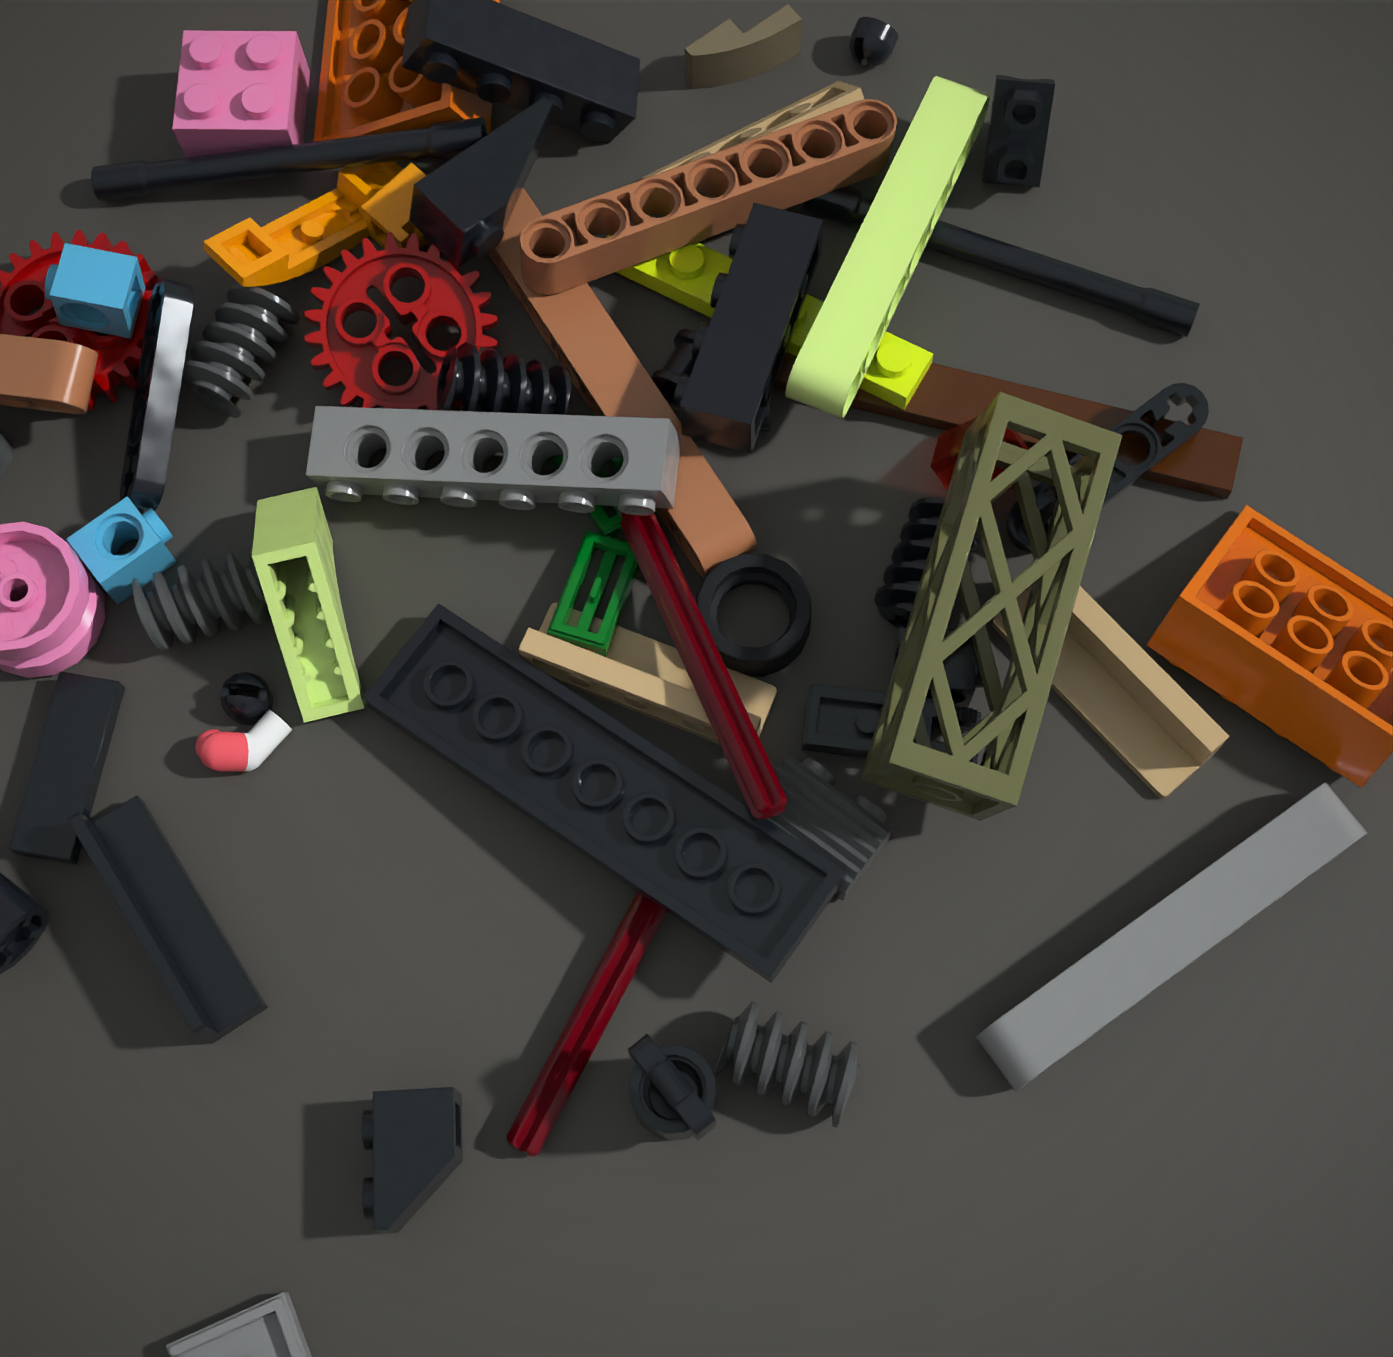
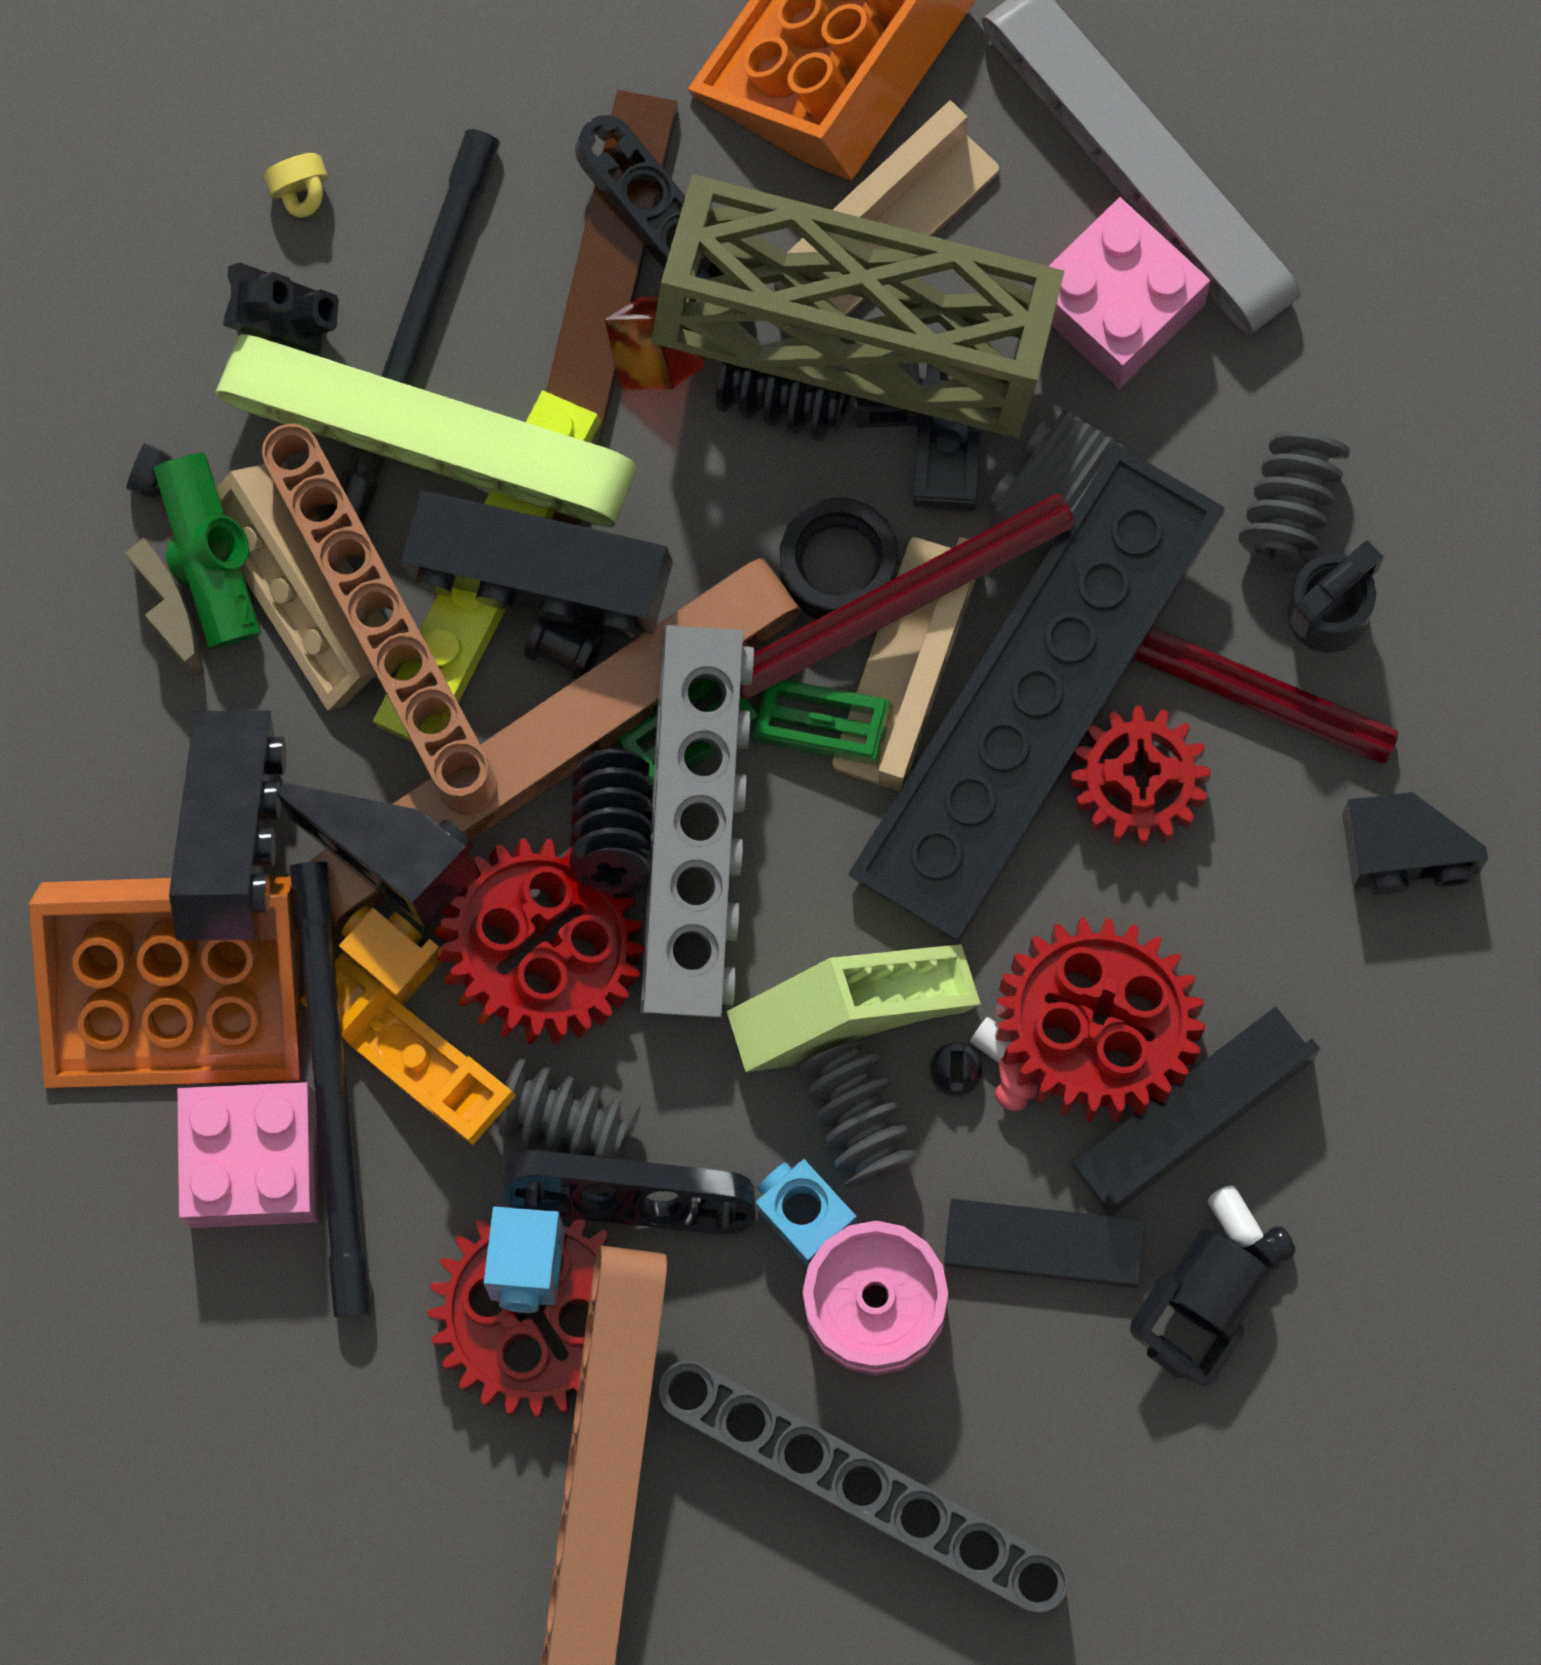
camera: 90 degrees left, 5 degrees up
(38, 956) = (1245, 1232): none -> white arm
(213, 801) = (1080, 1068): none -> red gear
(480, 883) = (1115, 778): none -> red gear
(828, 65) = (207, 550): none -> green piece
(1021, 898) = (1124, 292): none -> bright pink brick
(1150, 160) = (295, 176): none -> light yellow tile

